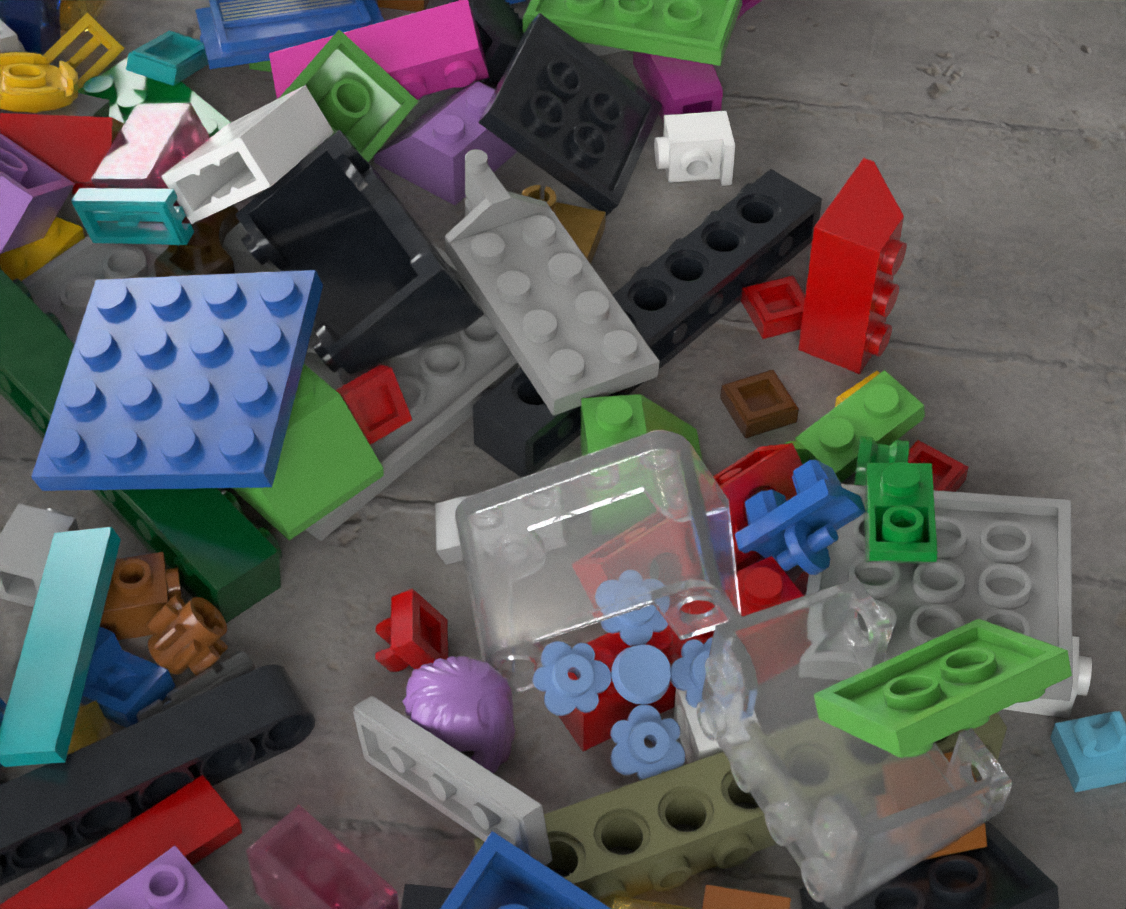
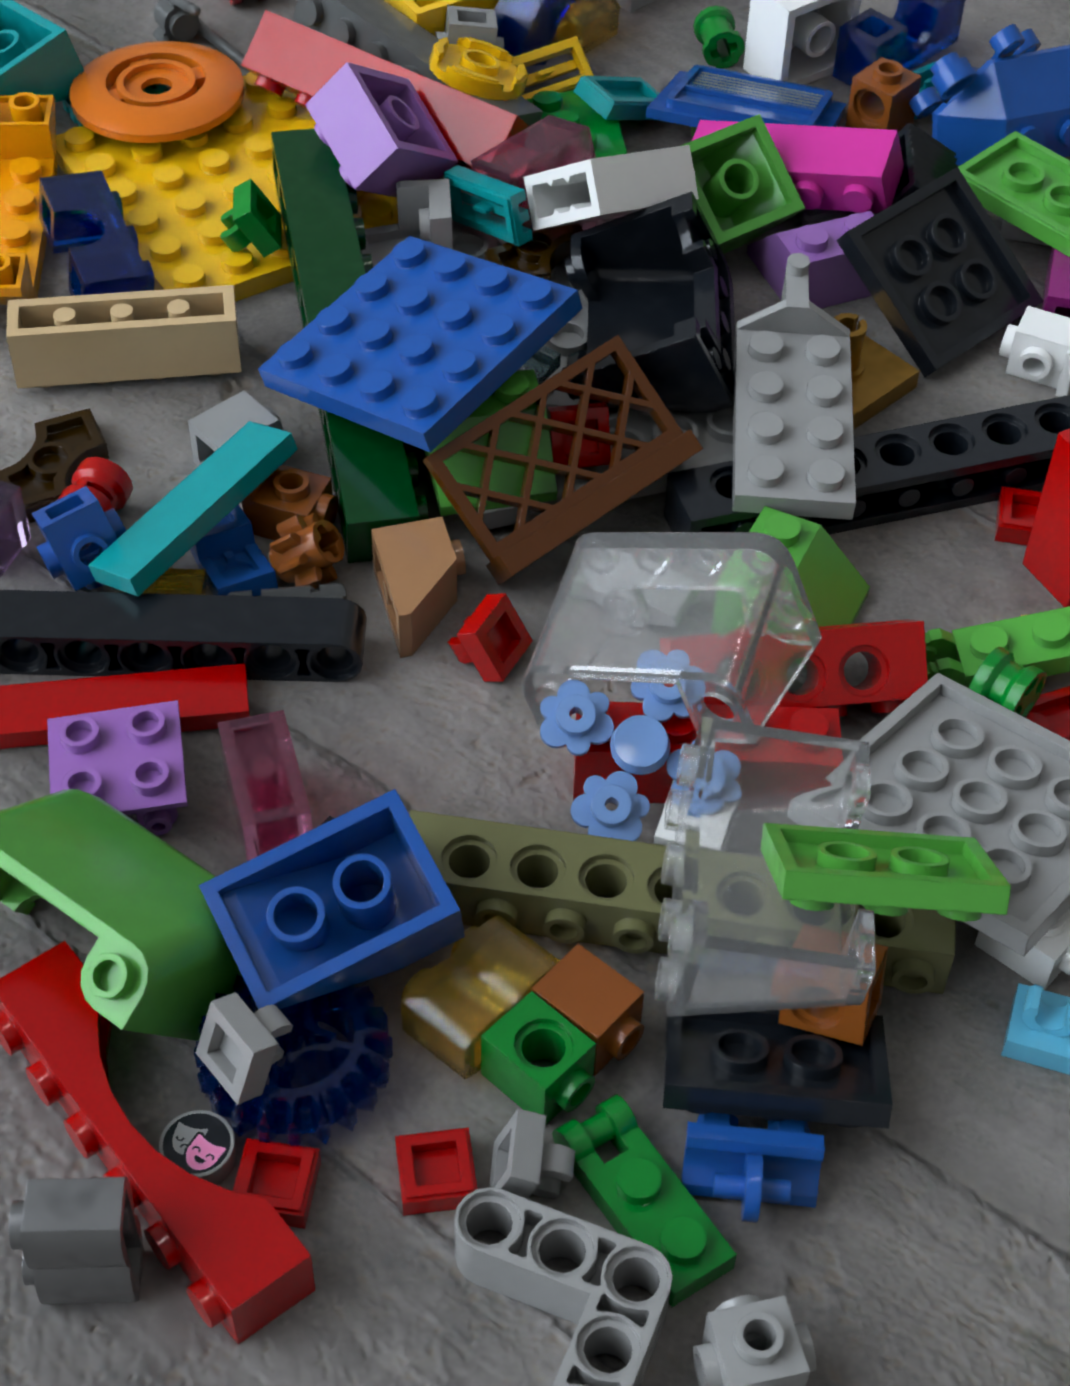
camera: 30 degrees right, 0 degrees up
(76, 241) = (427, 208): none -> light grey bracket
(303, 612) = (416, 577): none -> medium nougat slope
(417, 474) = (589, 502): none -> reddish brown fence
(450, 779) = (421, 758): light grey tile -> none
(464, 706) = (484, 708): medium lavender hair -> none
(759, 403) = (946, 591): reddish brown tile -> none
(803, 526) = (877, 687): blue hips -> none
(900, 514) = (968, 719): green slope -> none

